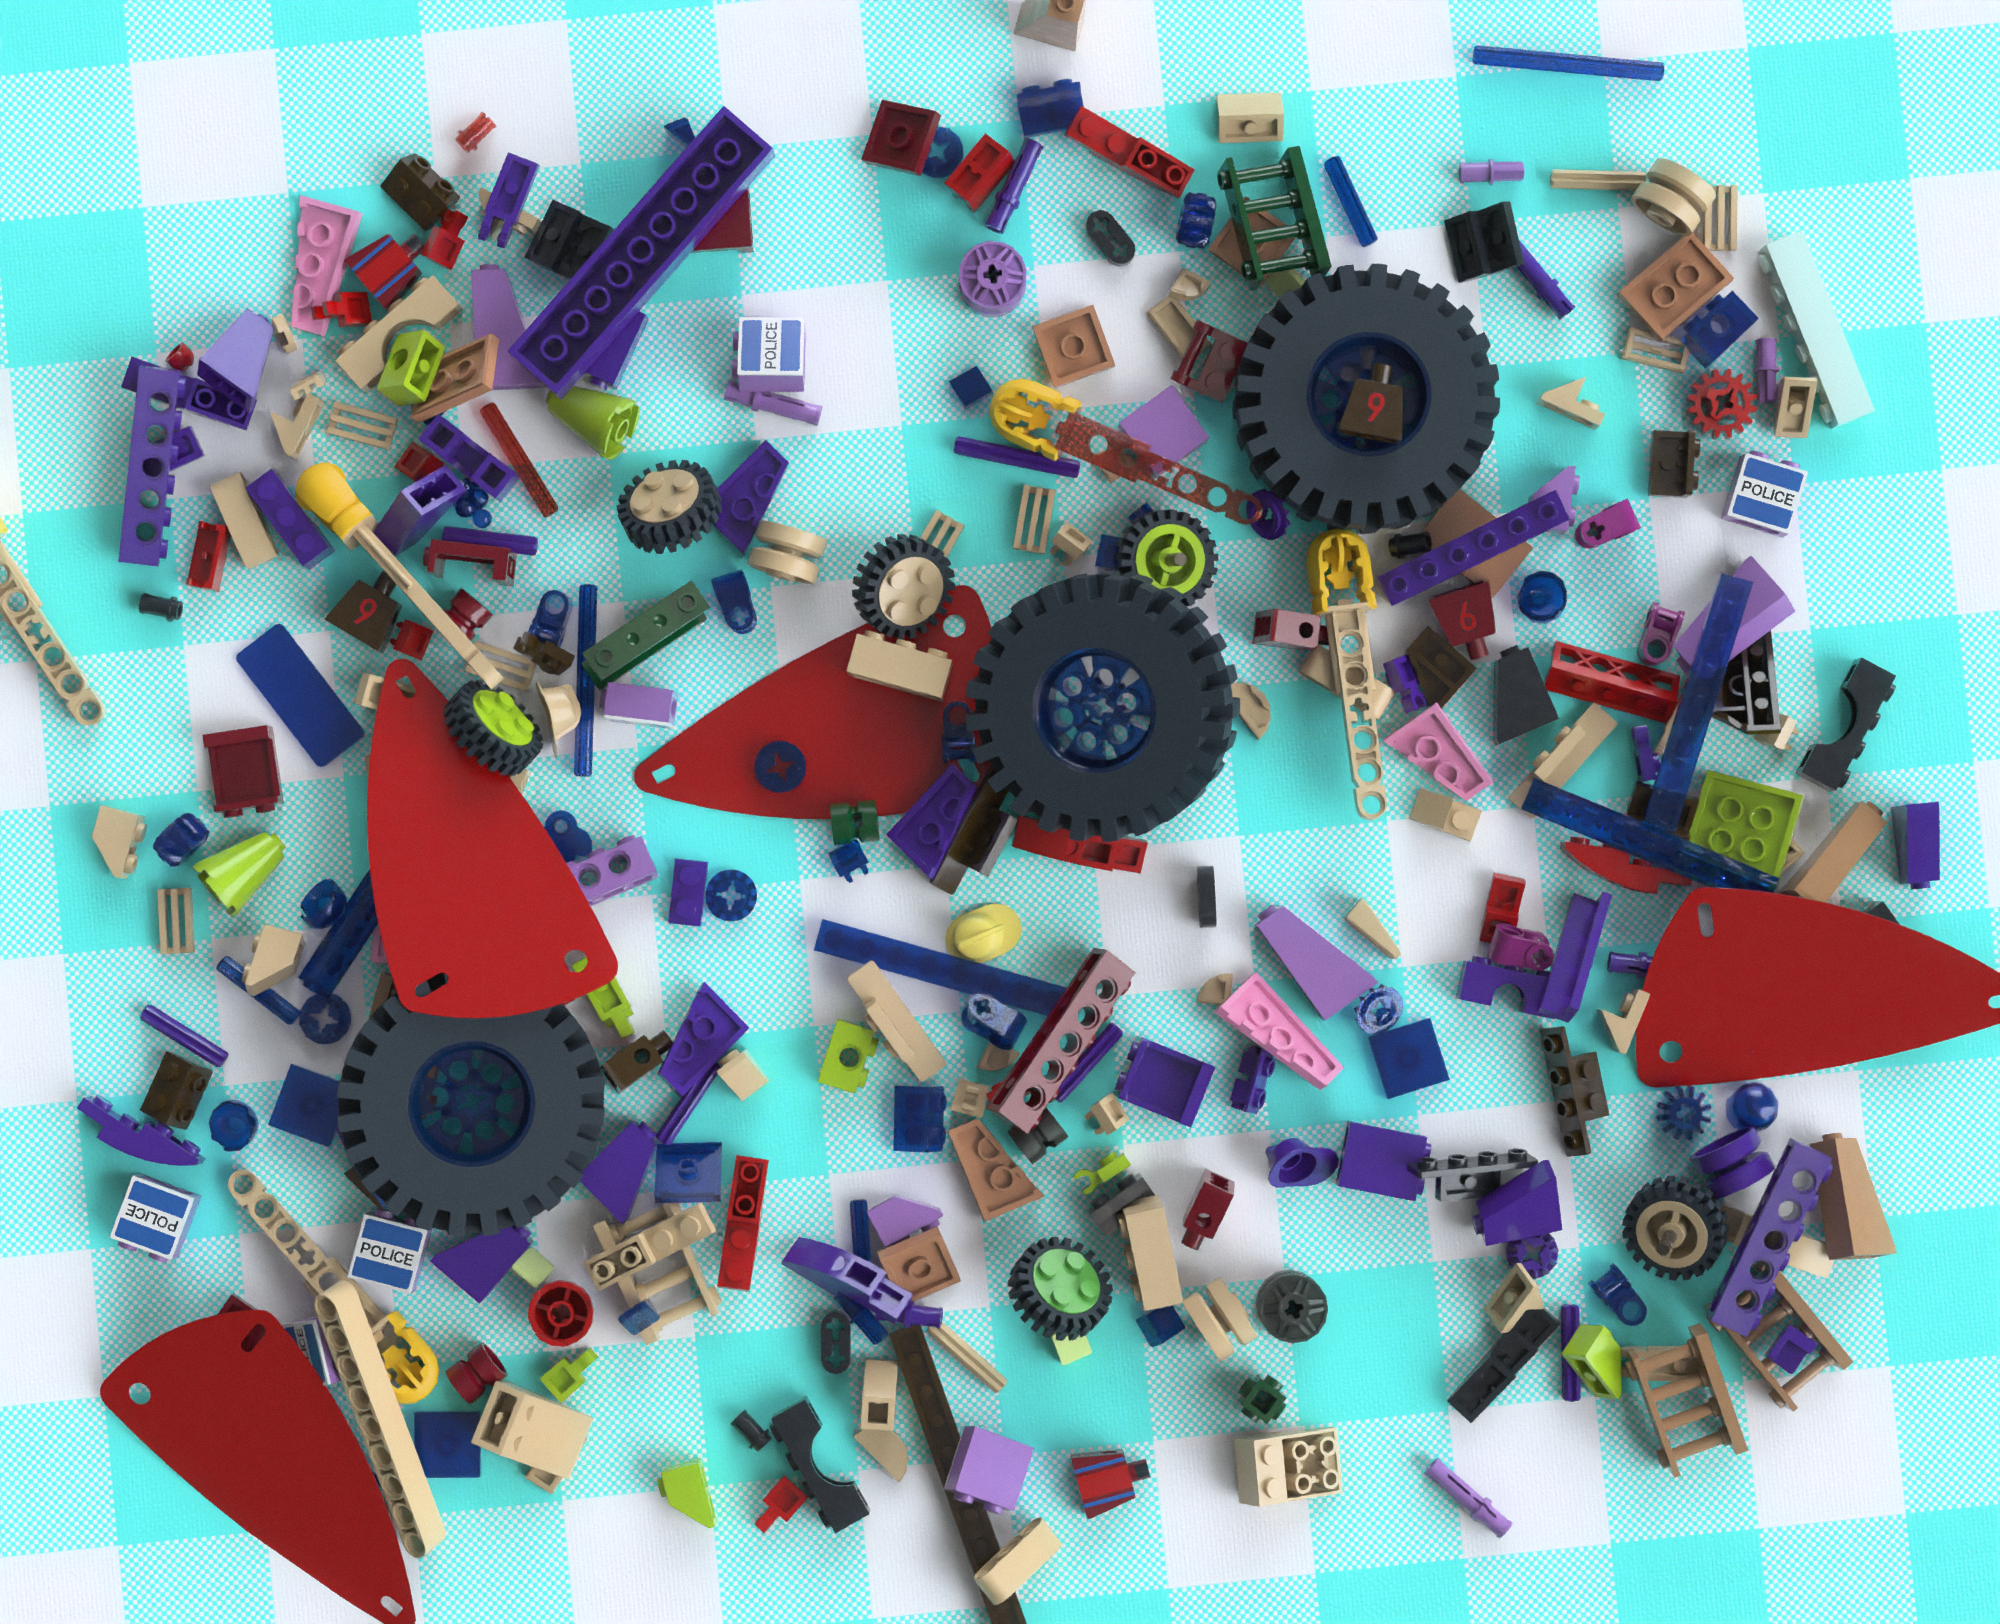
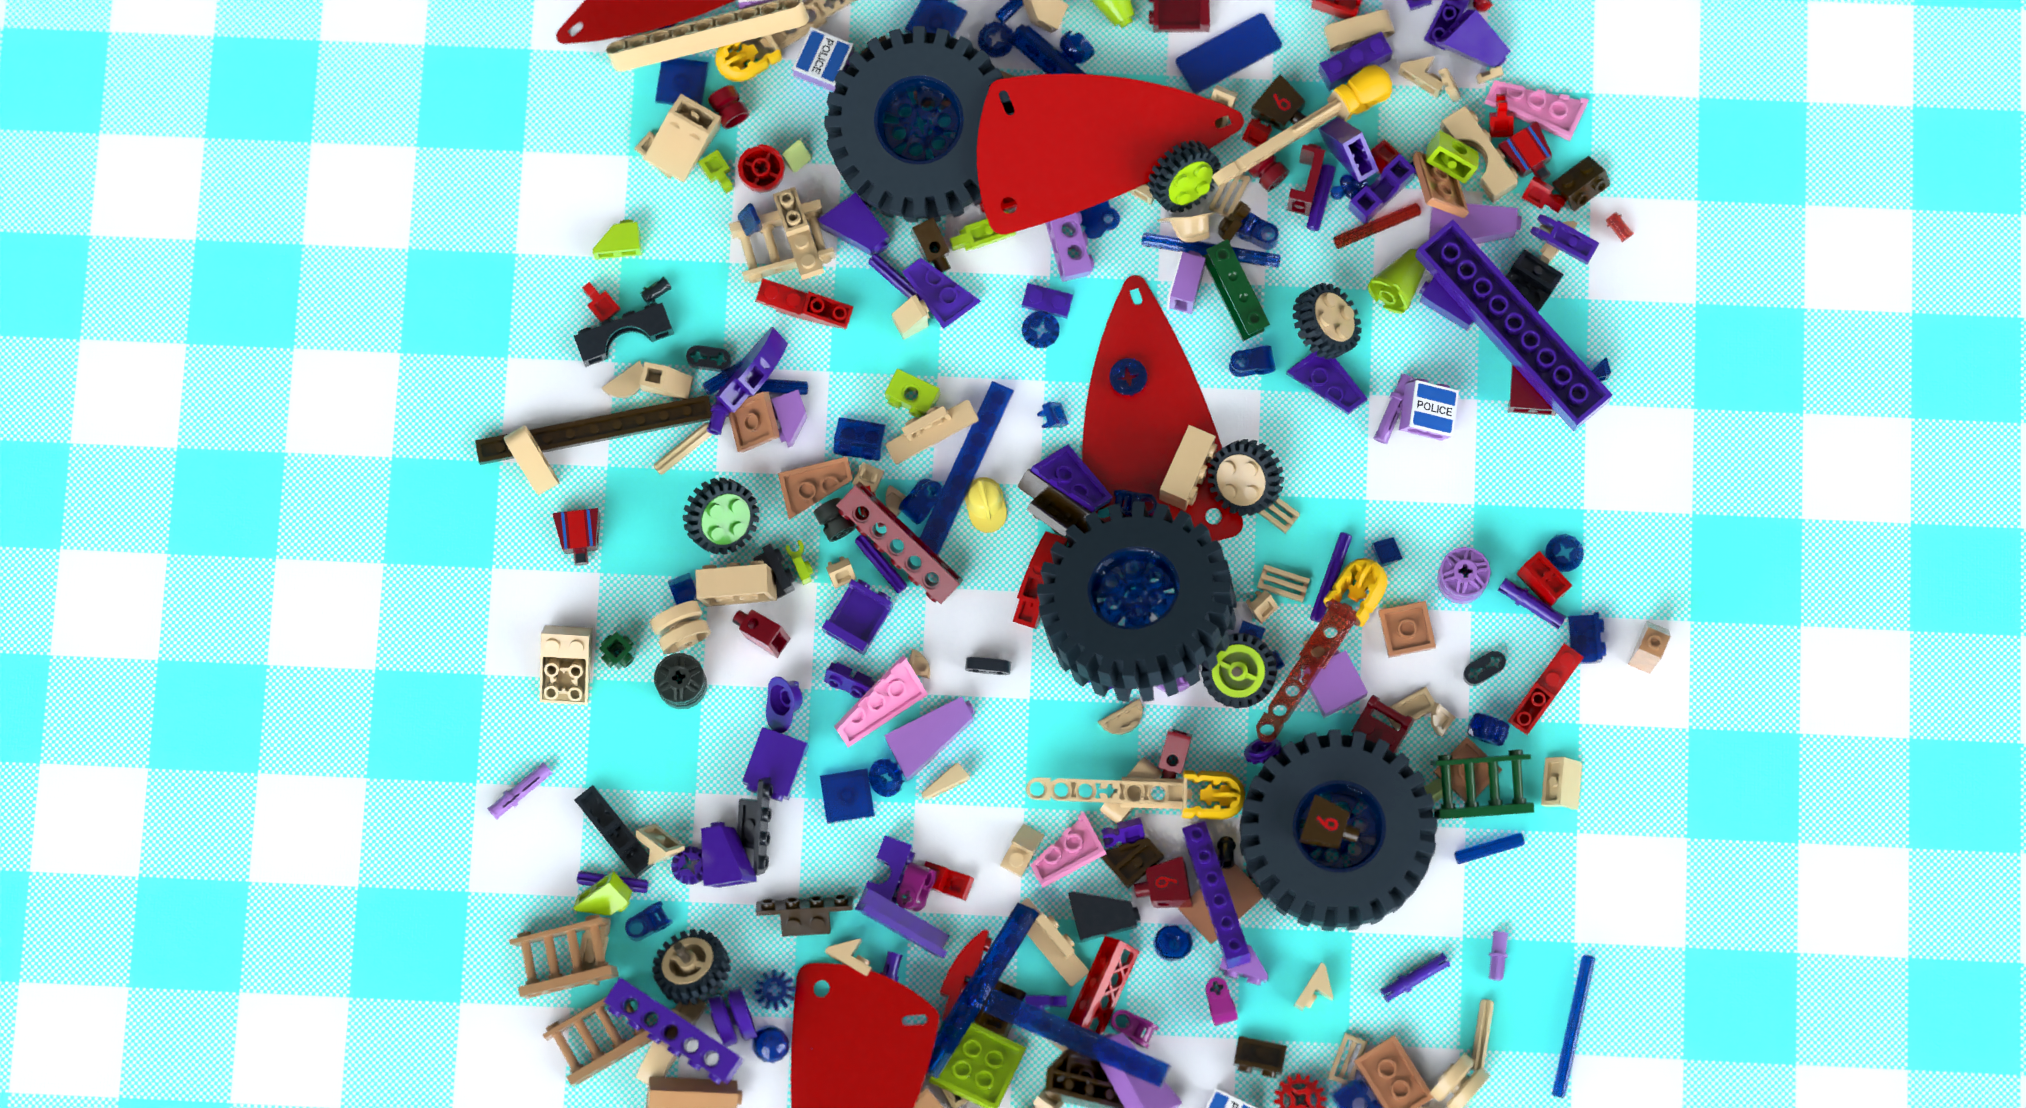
camera: 105 degrees right, 10 degrees down
(335, 418) = (1424, 103): tan tile -> none
(483, 1260) = (805, 122): dark purple slope -> none
(688, 1172) = (846, 271): clear blue plate -> none
(786, 558) = (1282, 400): tan wheel -> none
(843, 822) = (1080, 414): dark green wheel -> none
(901, 137) = (1577, 525): dark red plate -> none
(988, 1469) = (599, 448): medium lavender piece -> none
(1071, 1350) = (676, 523): yellowish green slope -> none
(1484, 242) = (1445, 941): black slope -> none
(1790, 1348) = (589, 1038): dark purple panel -> none

